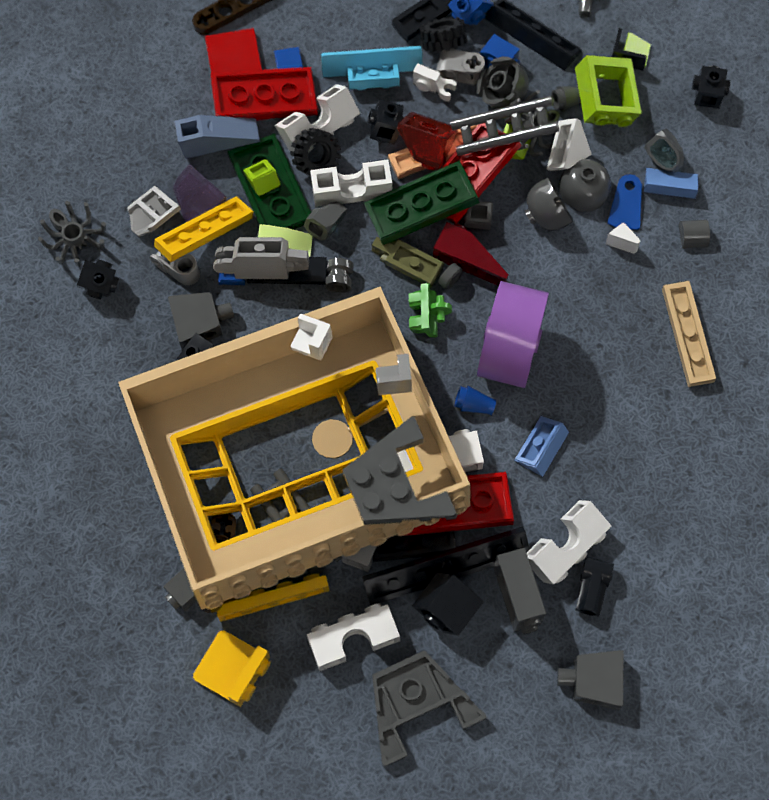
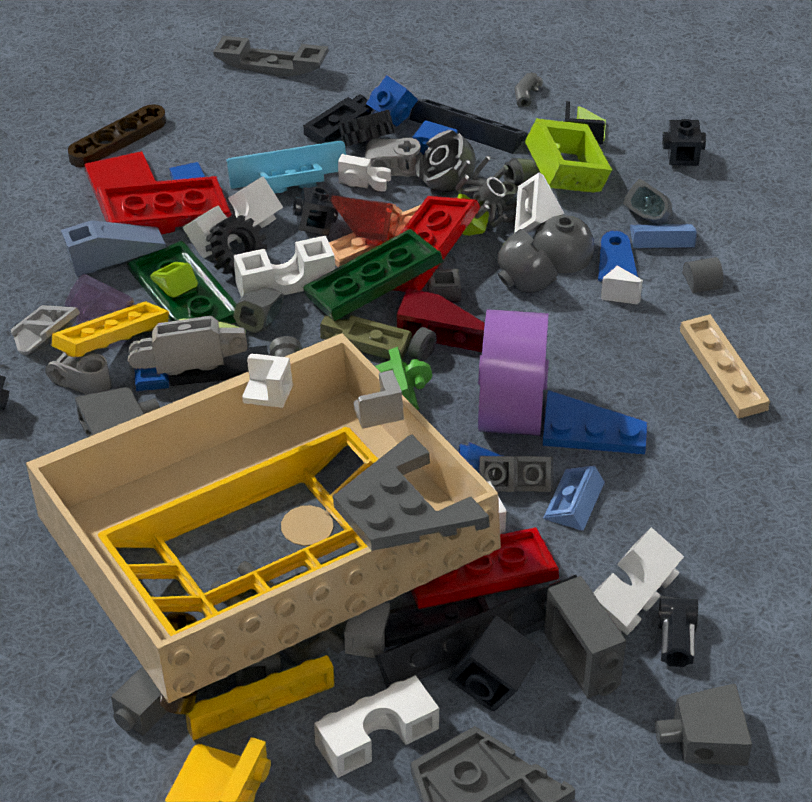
camera: 10 degrees left, 25 degrees down
(496, 418) = (518, 472): none -> dark grey slope
(518, 133) = (439, 179): dark grey bar -> none
(568, 378) = (591, 427): none -> blue wing

